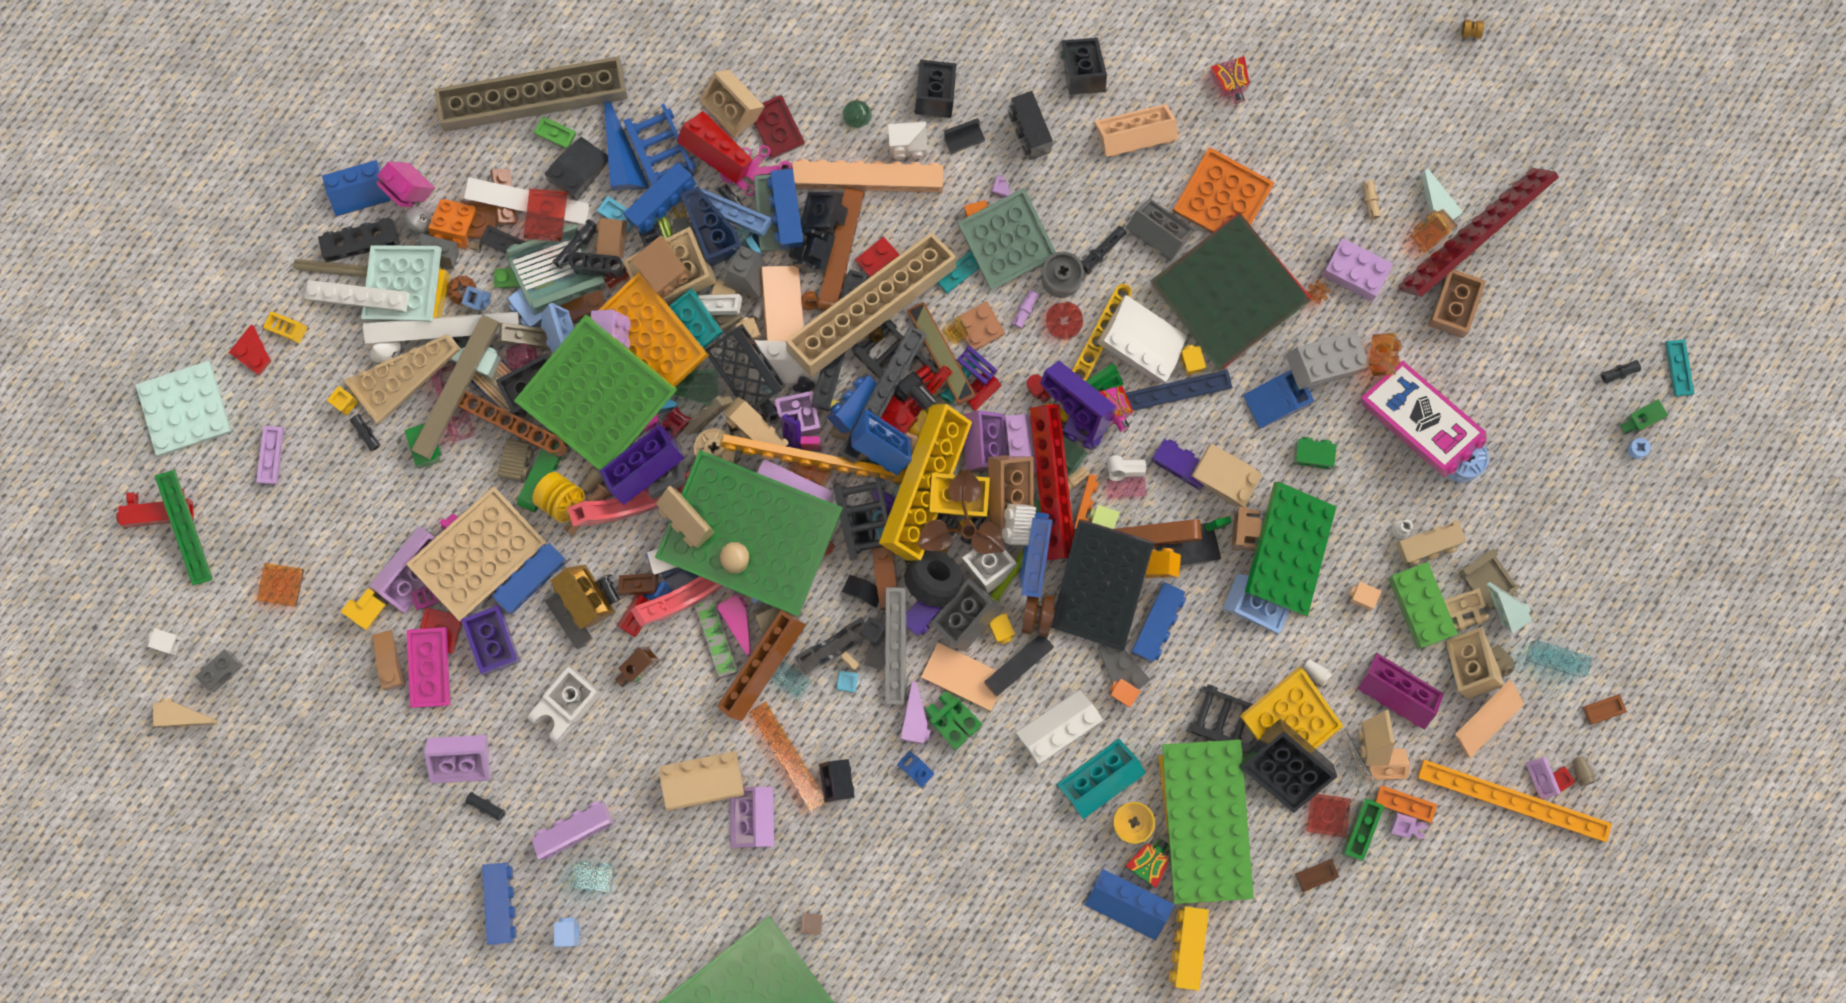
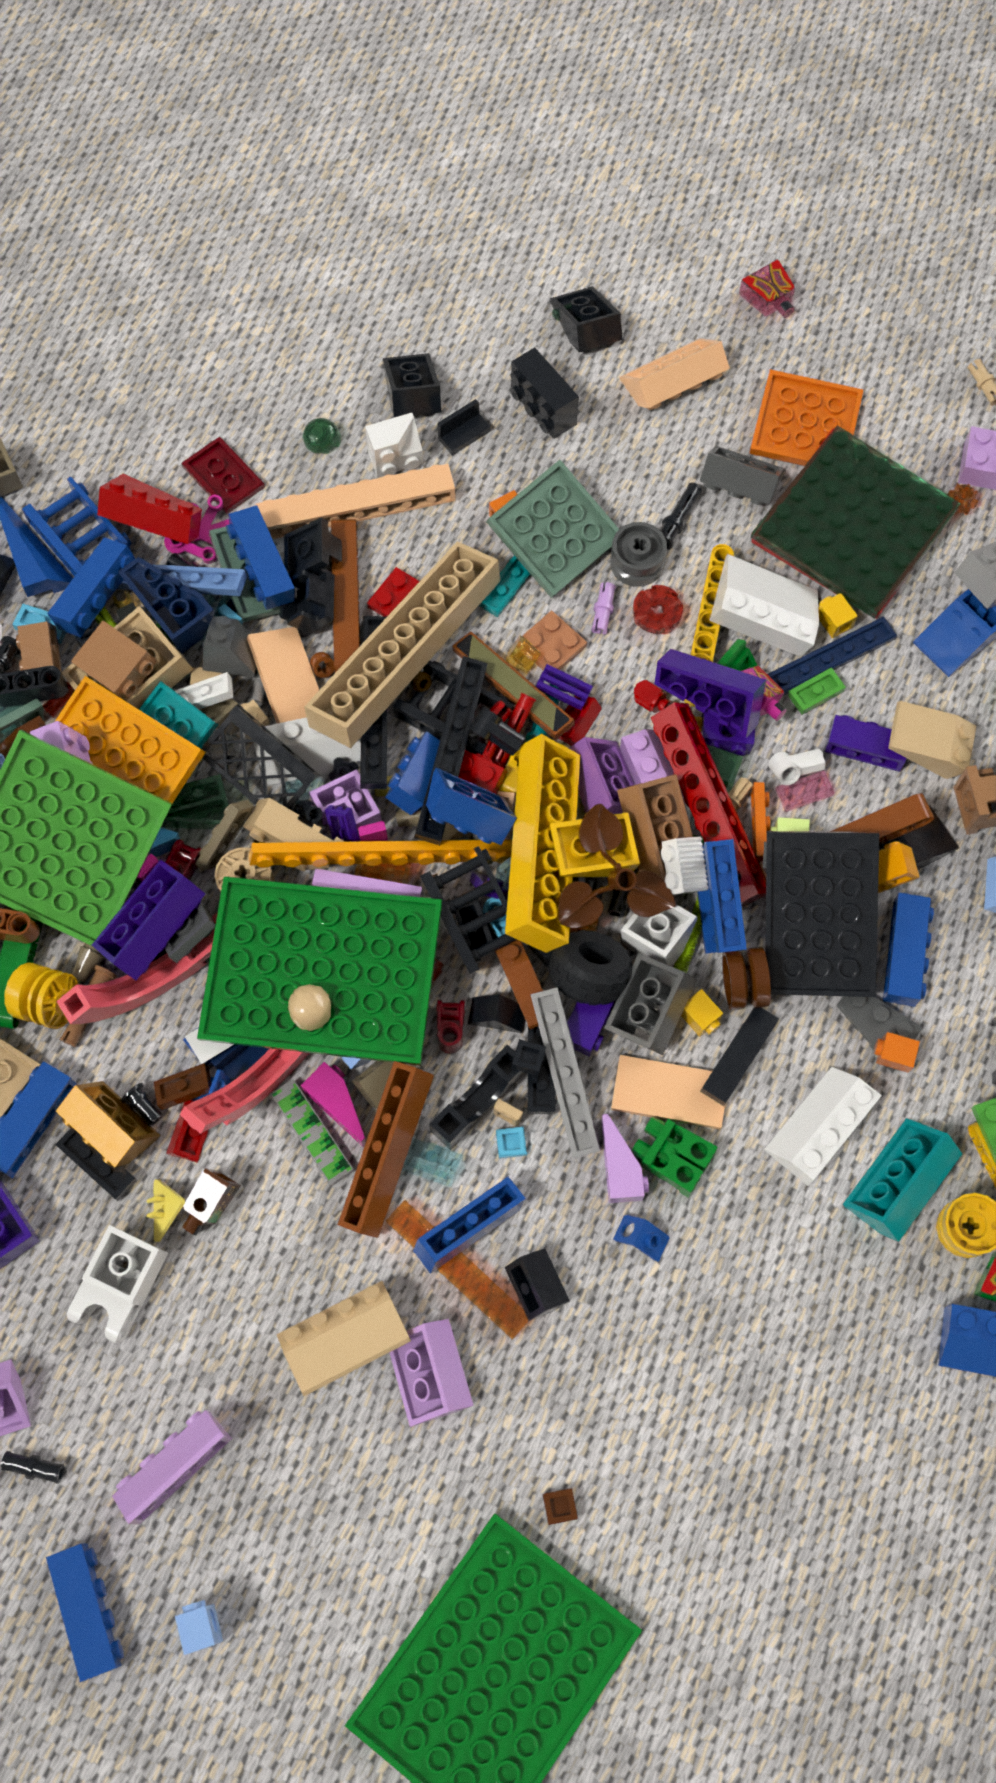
camera: 15 degrees left, 10 degrees down
(593, 877) = (218, 1529): clear light blue brick -> none
(608, 663) = (166, 1208): none -> light yellow piece
(684, 517) = (225, 968): tan slope -> none
(731, 102) = (157, 457): tan slope -> none
(802, 730) = (468, 1224): none -> blue brick
(829, 586) = (450, 1021): none -> dark red piece
(1001, 187) = (525, 475): lavender tile -> none
(1159, 415) = (816, 691): none -> bright green plate
(1218, 523) = (943, 801): green tile -> none

